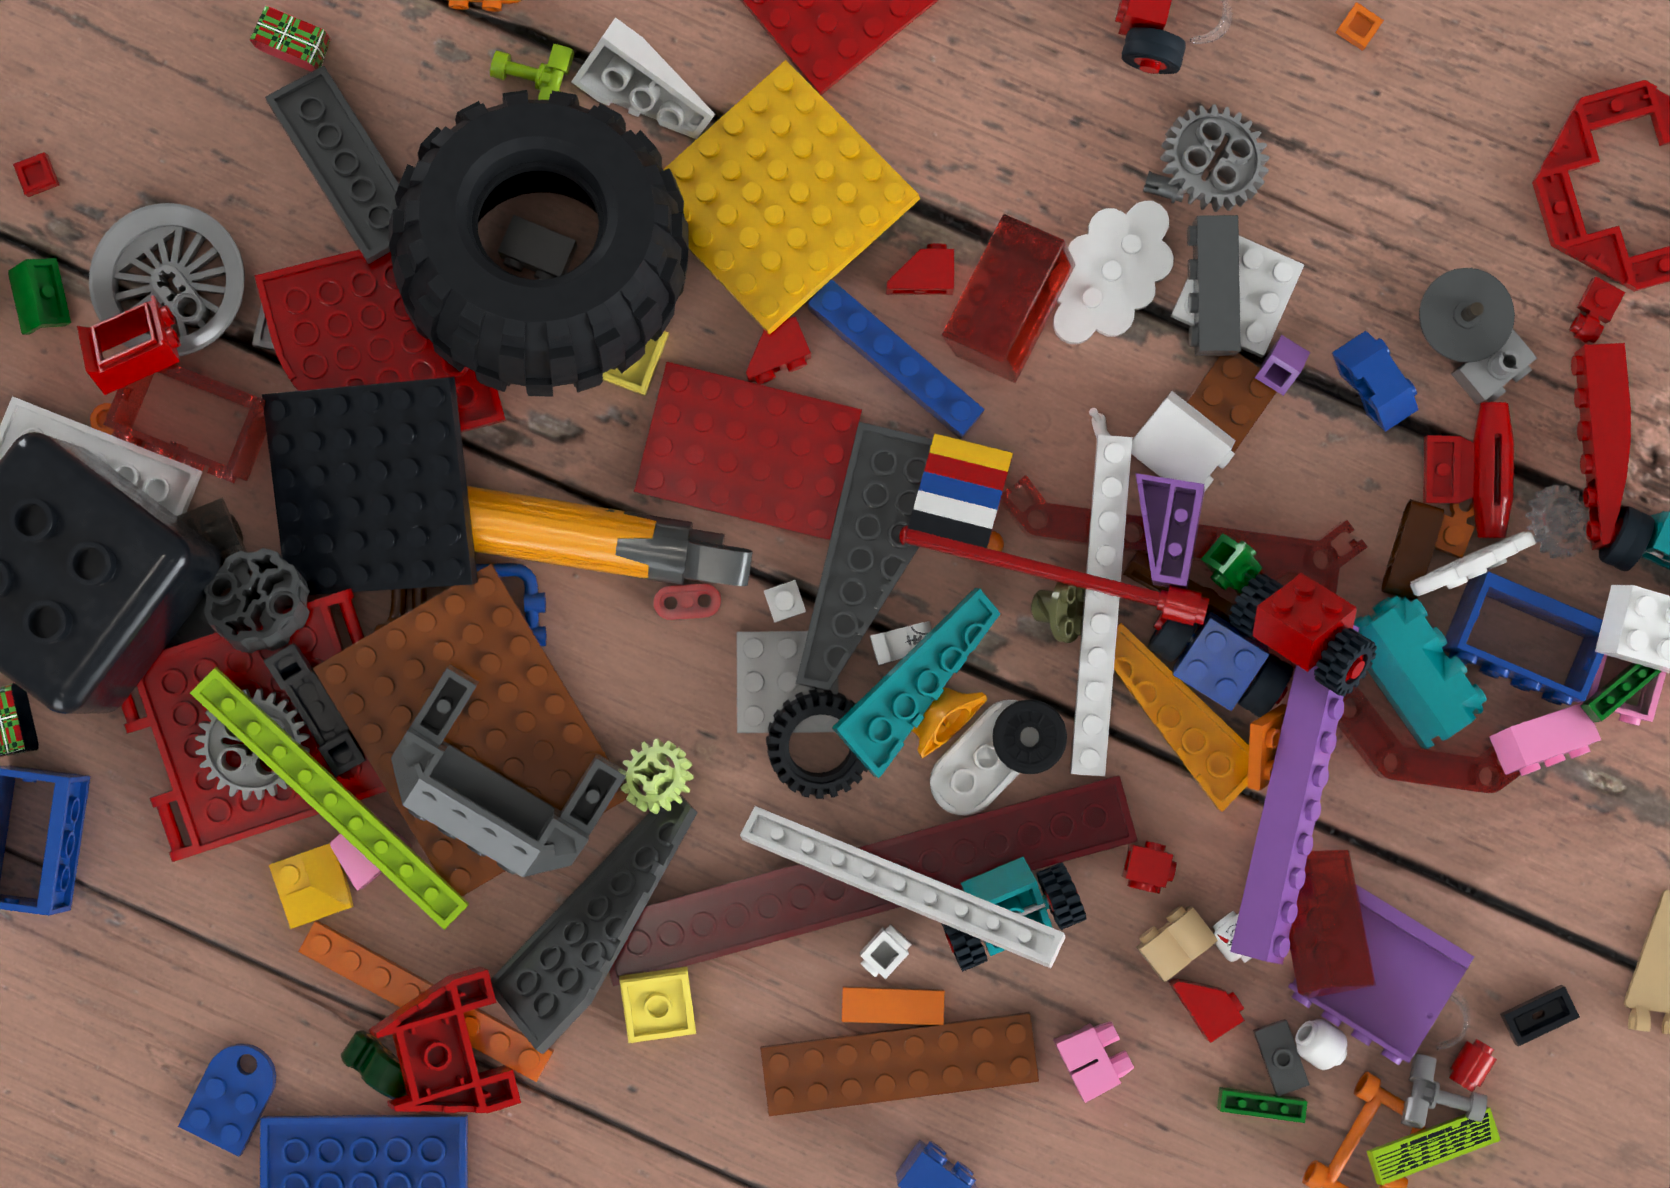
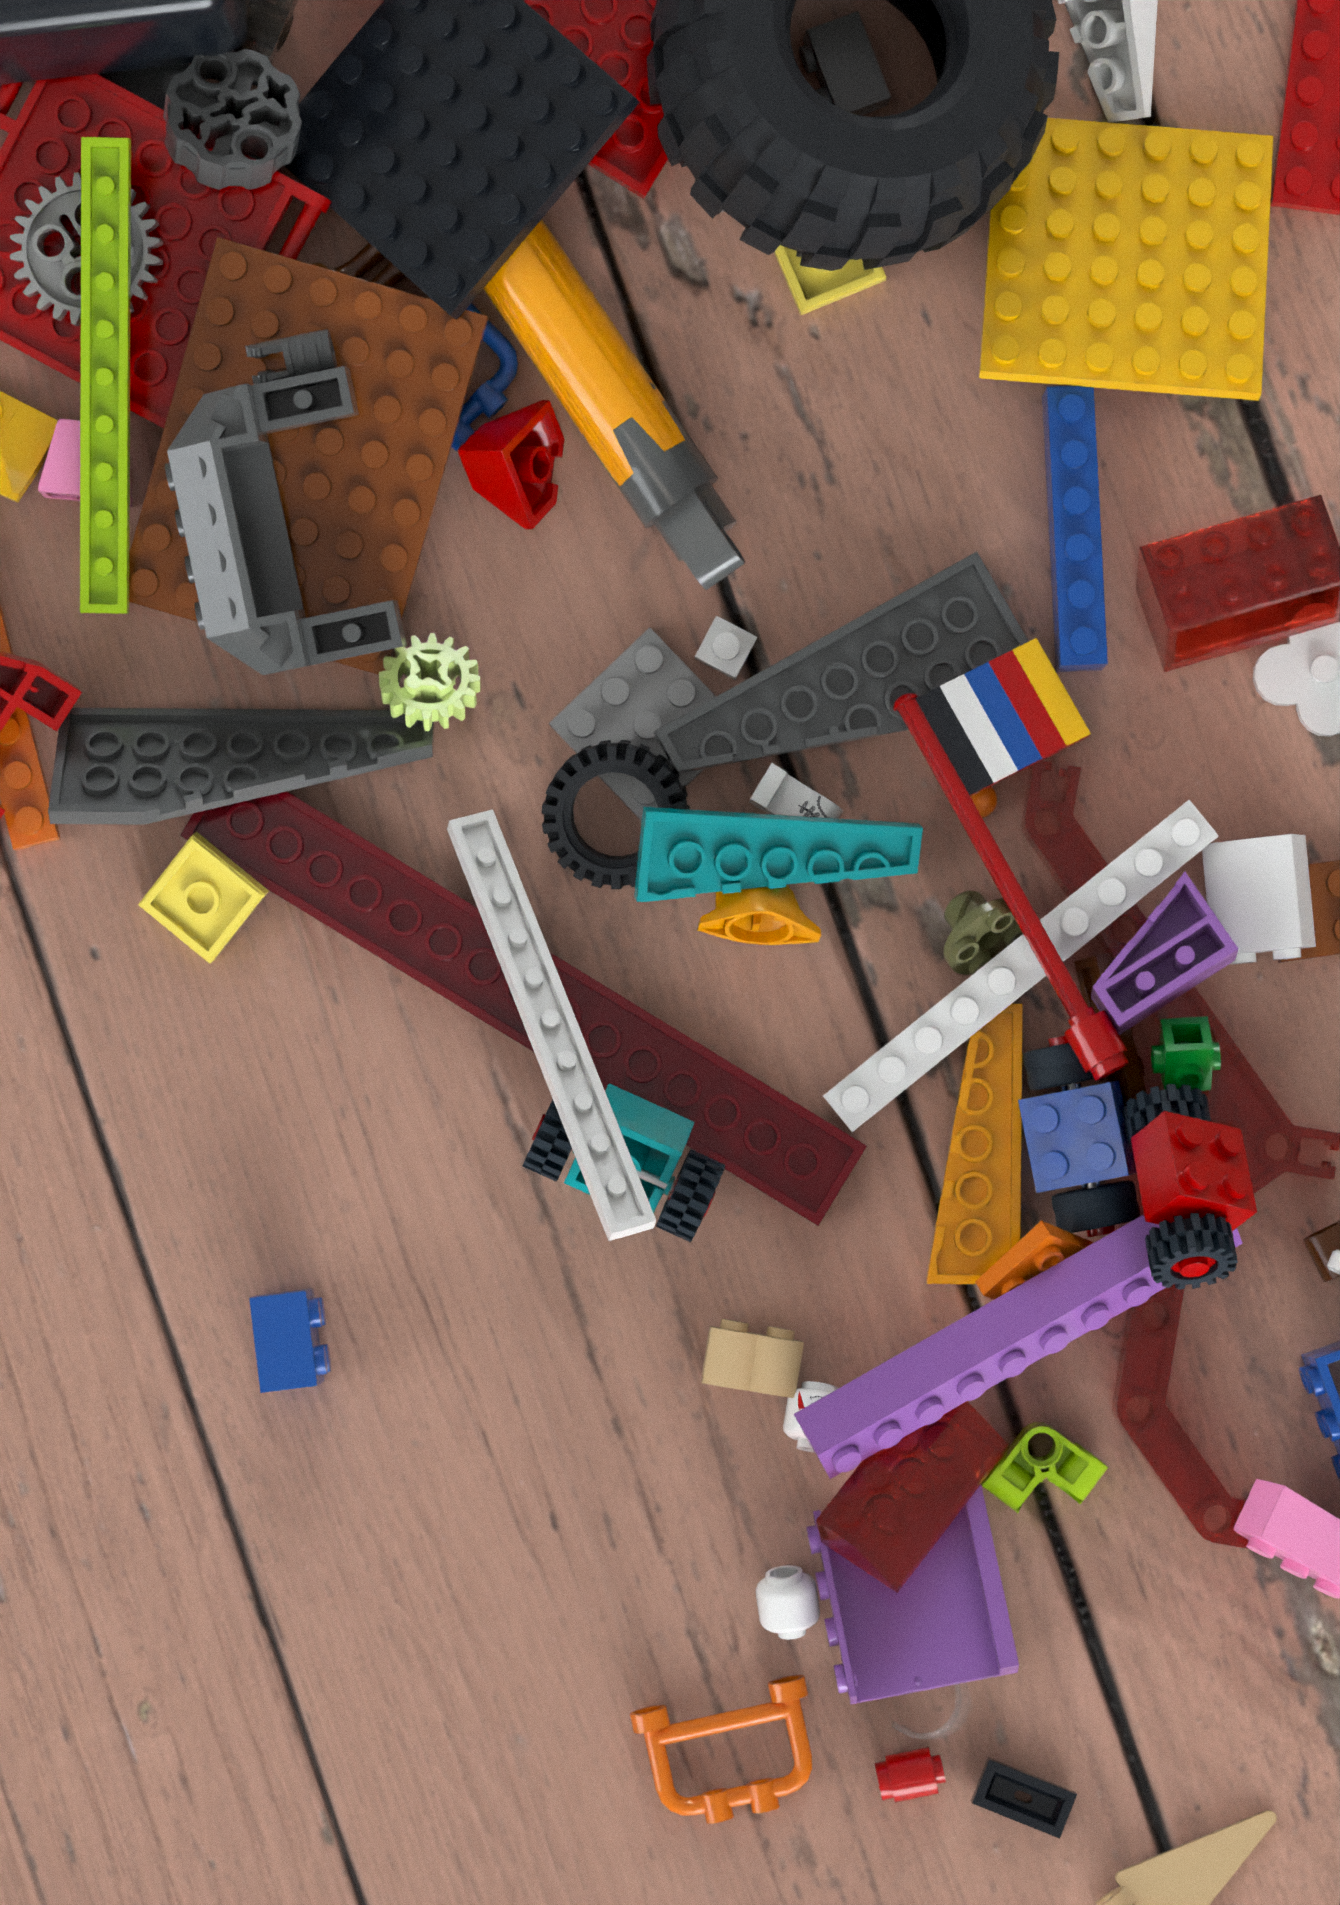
camera: 45 degrees right, 0 degrees up
(316, 708) = (181, 278): black slope -> none
(418, 682) = (301, 353): none -> dark grey hinge
(580, 621) = (514, 462): none -> red slope
(687, 601) = (634, 550): red plate -> none
(748, 451) = (841, 468): red plate -> none
(778, 351) = (971, 404): red slope -> none
(885, 952) = (468, 1074): white brick -> none
(893, 1005) = (422, 1135): orange tile -> none
(899, 1064) = (369, 1196): dark orange plate -> none
(925, 273) = (1189, 477): red slope -> none
(970, 771) = (760, 997): white tile -> none
(1051, 736) = (813, 989): black wheel -> none
(1088, 1061) = (566, 1366): bright pink hips -> none
(1098, 422) = (1205, 793): white piece -> none
(1149, 867) = (802, 1262): red brick -> none
(1209, 1007) = (718, 1453): red slope -> none
(1262, 1105) = (670, 1599): green piece -> none
(1281, 1057) = (736, 1575): dark grey plate -> none
(1384, 828) = (1066, 1466): none -> lime piece
(1416, 674) = (1252, 1346): teal brick -> none
(1428, 1093) = (837, 1753): light grey bar -> none
(1431, 1147) = (791, 1809): lime tile -> none

